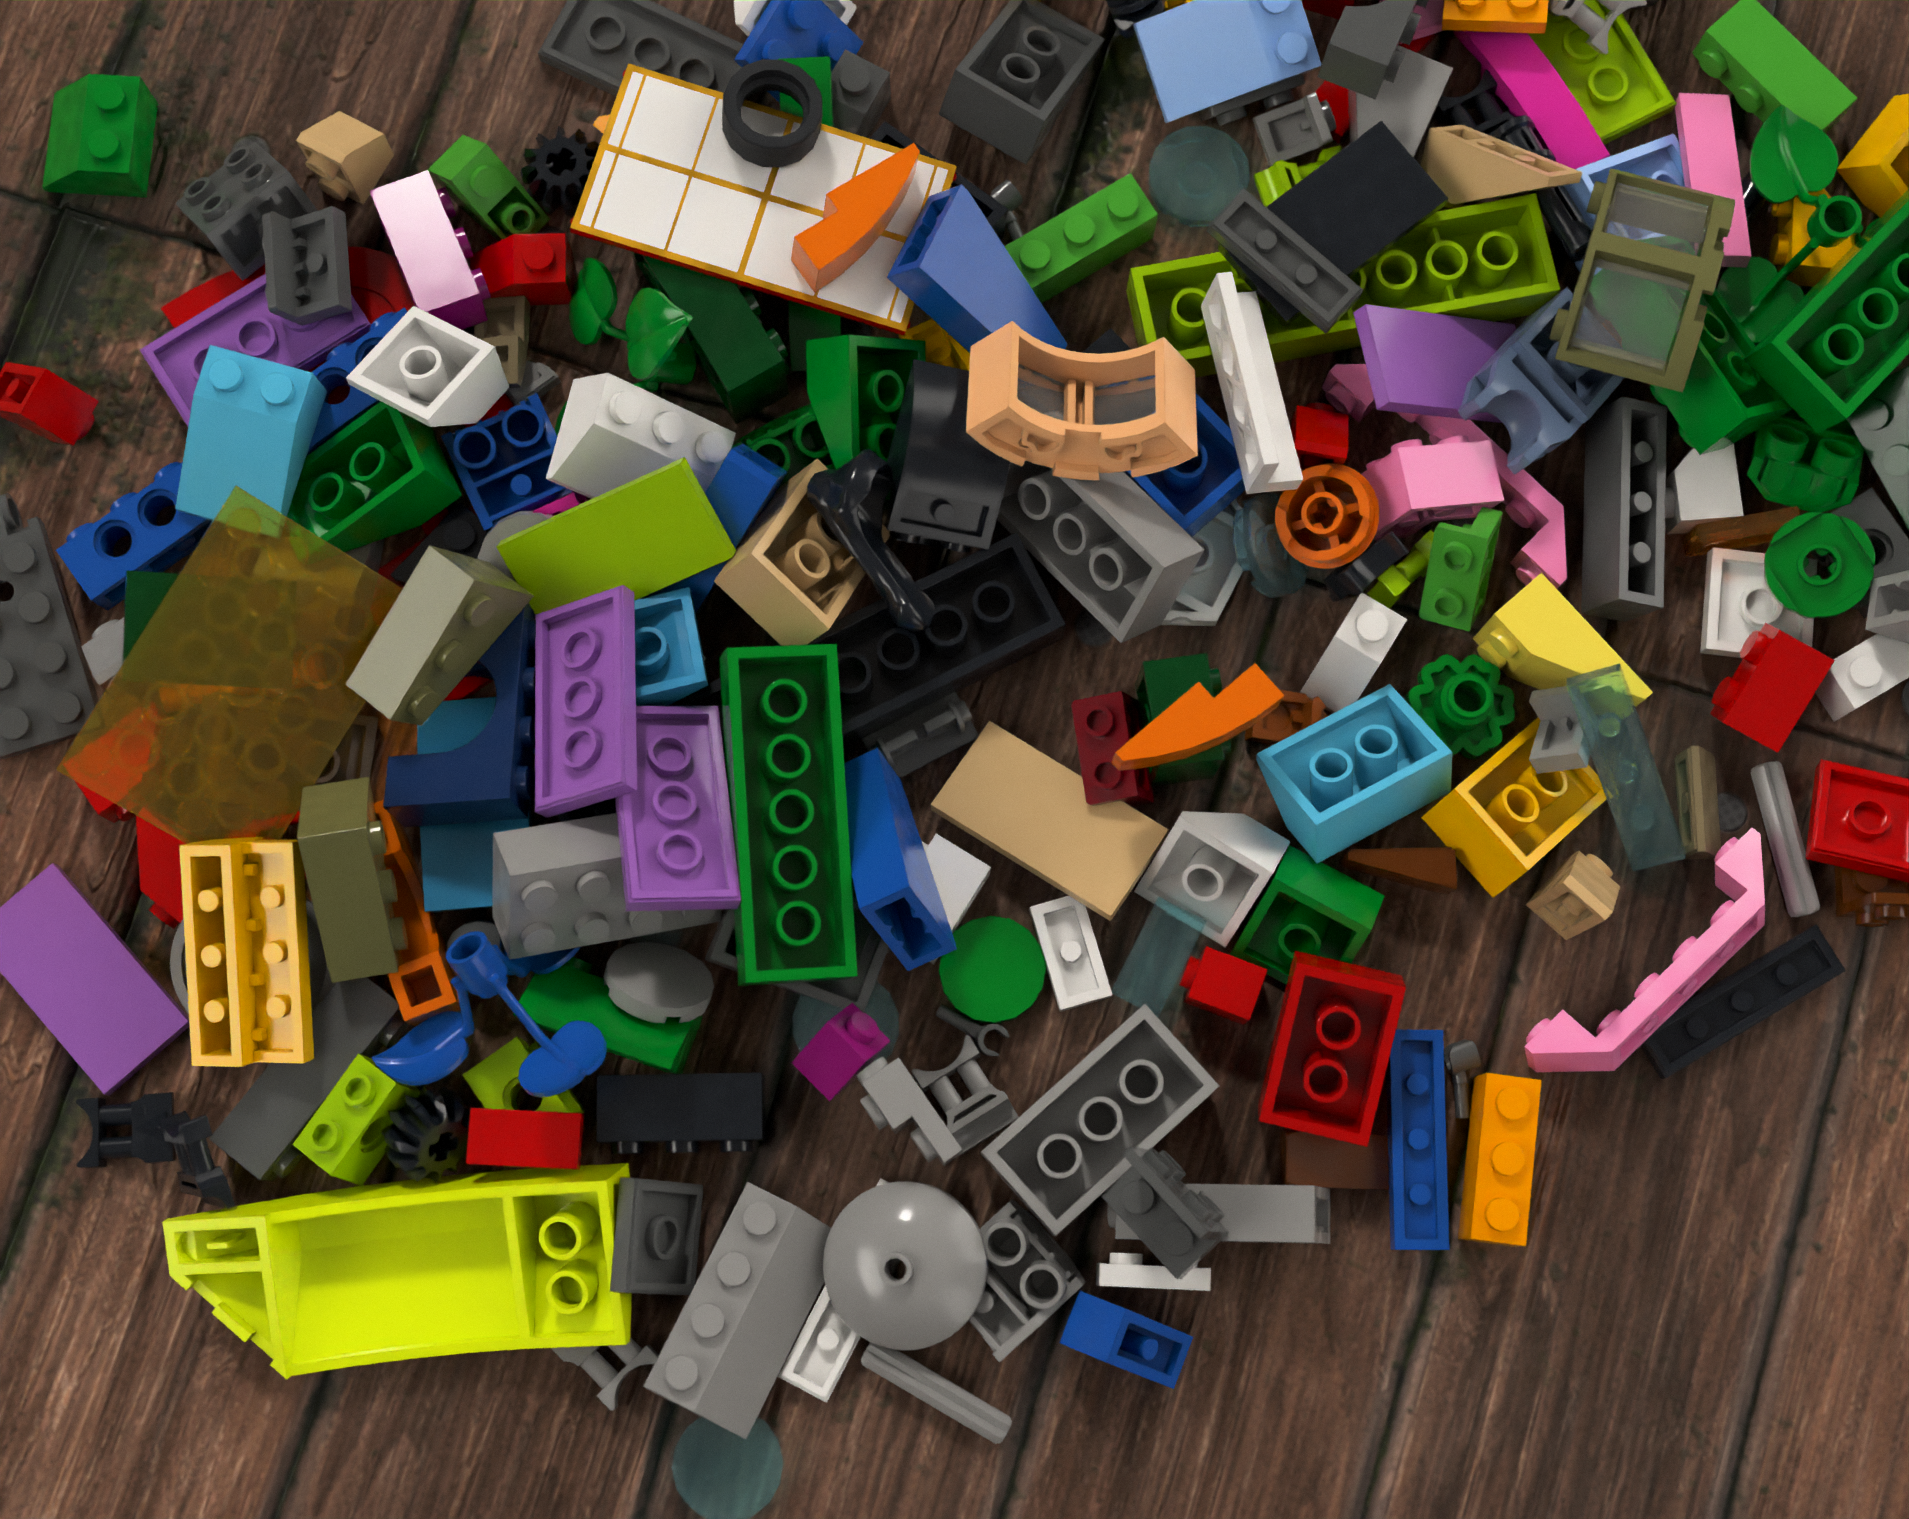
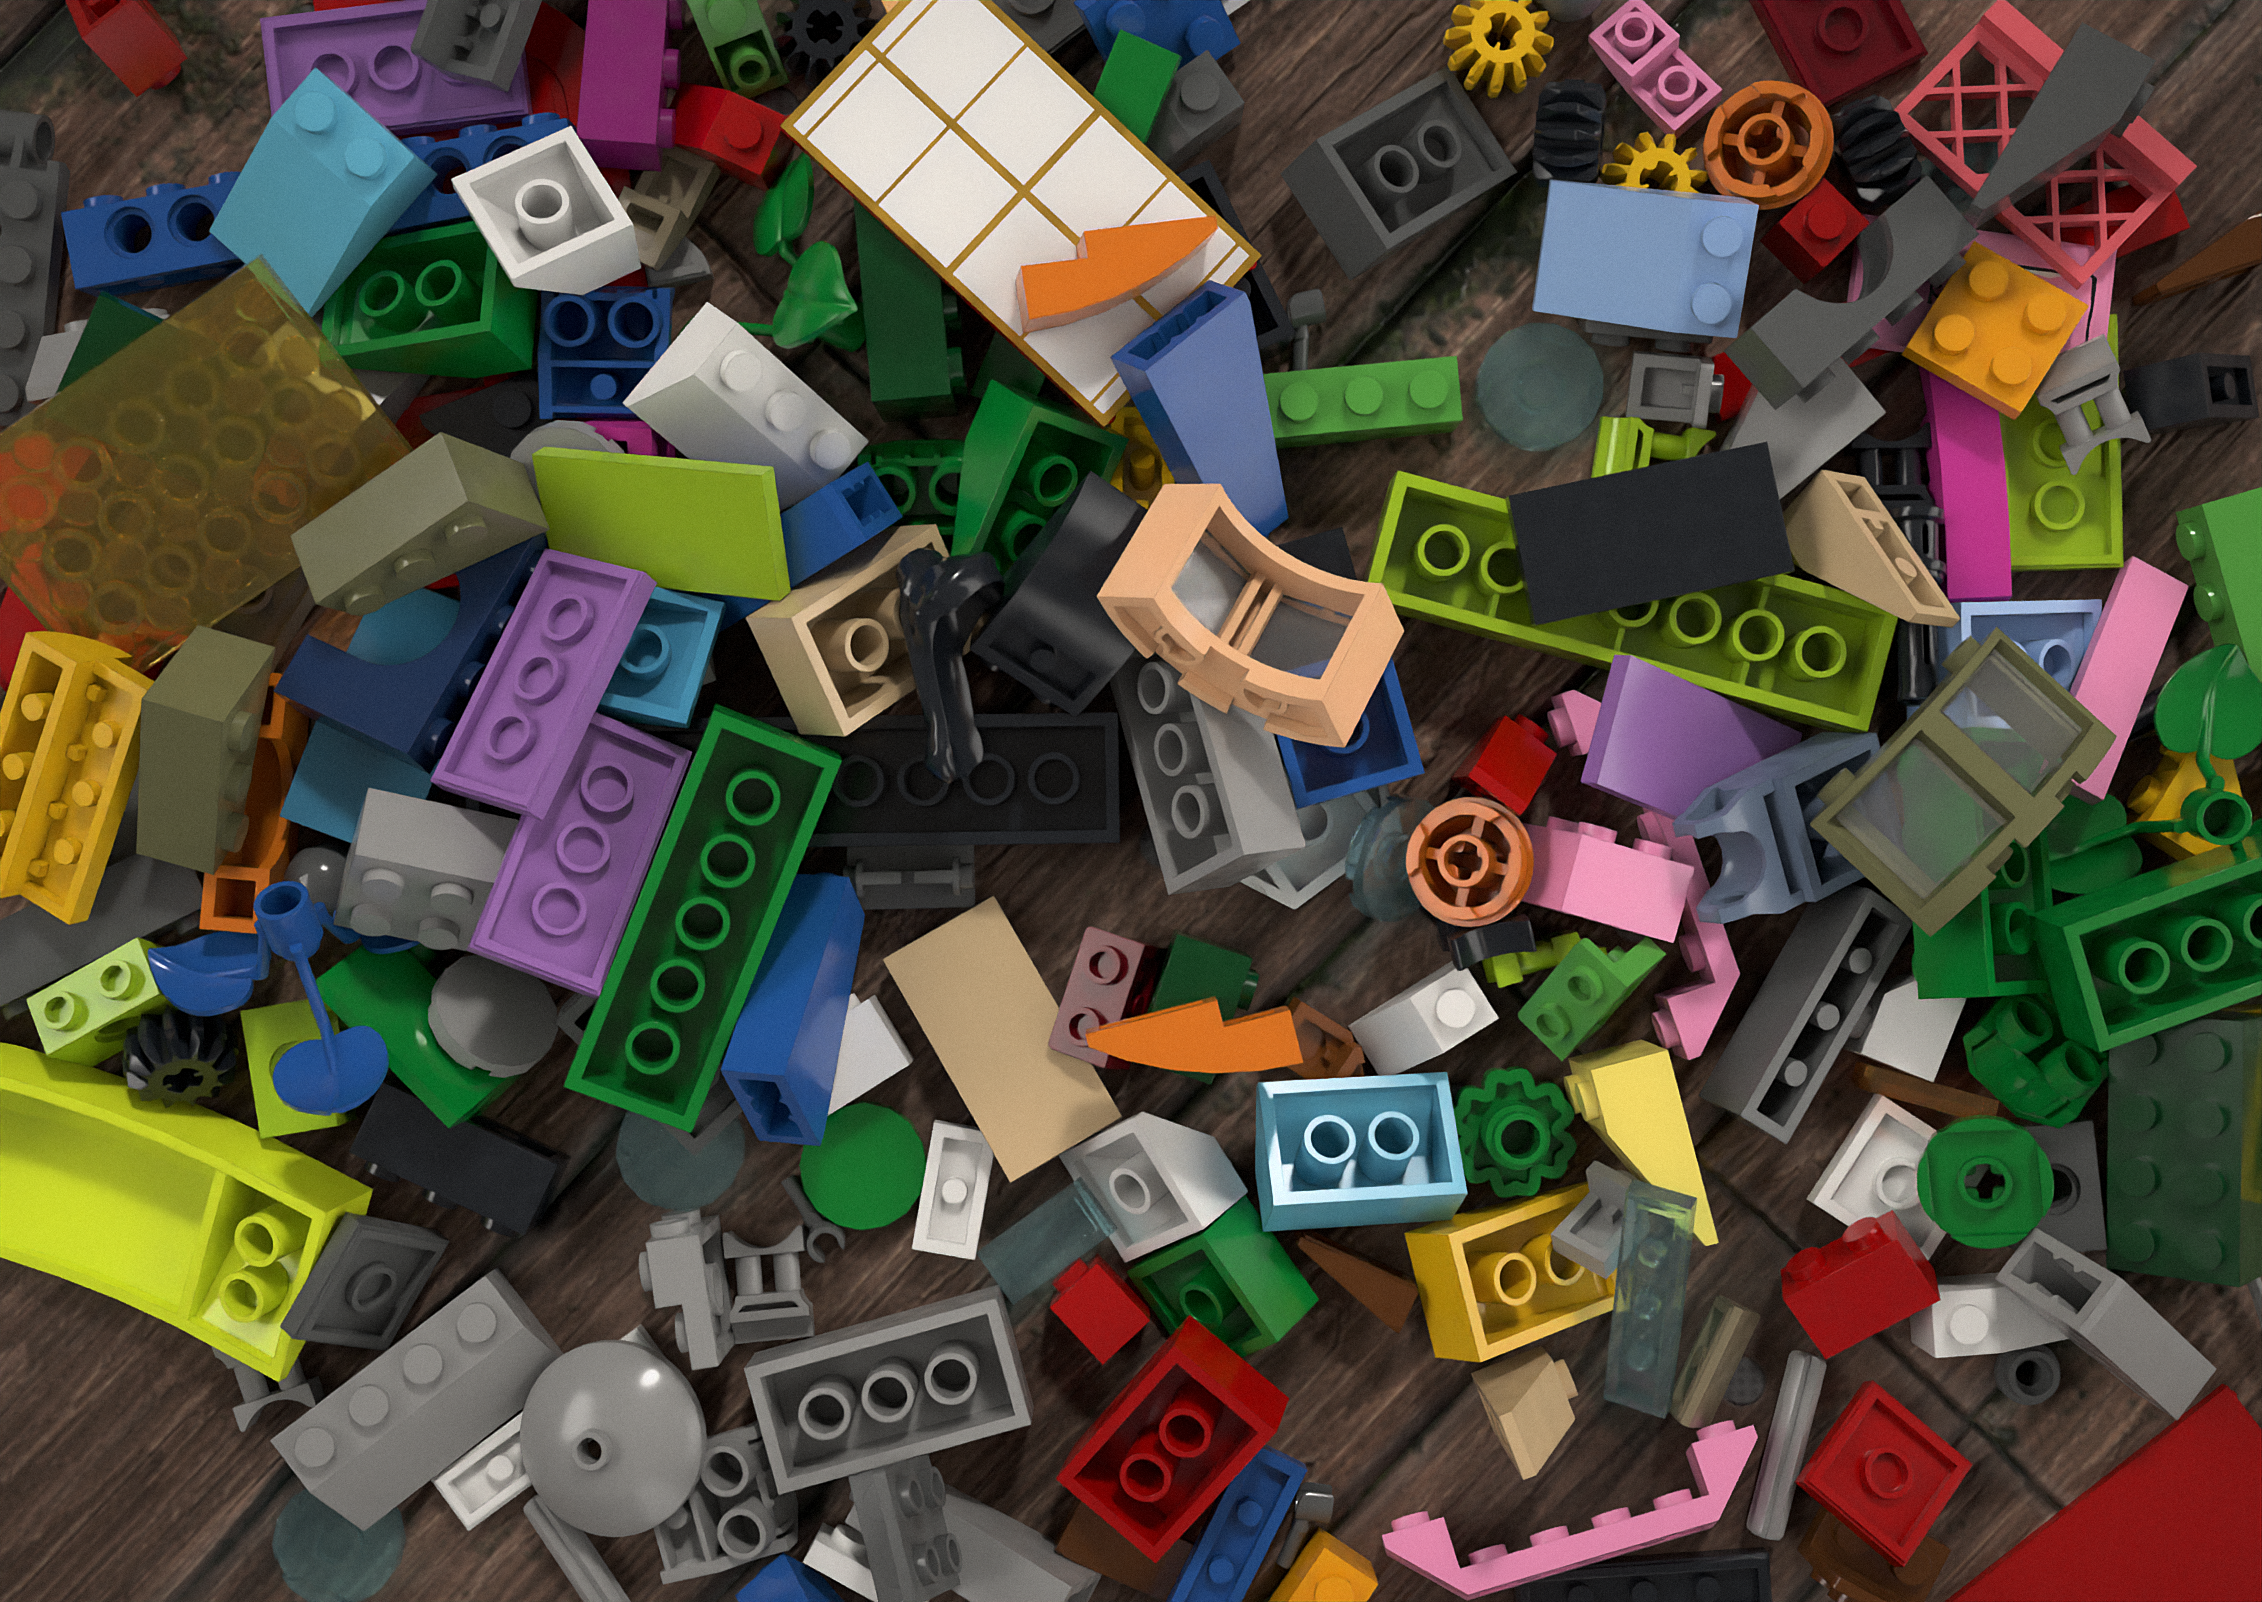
camera: 35 degrees right, 10 degrees up
(524, 1138) = (248, 1107): red tile -> none
(771, 76) = (1098, 52): black tyre -> none
(841, 1051) = (650, 1186): magenta brick -> none
(1250, 388) = (1454, 684): white fence -> none
(1284, 260) = (1569, 555): dark grey tile -> none

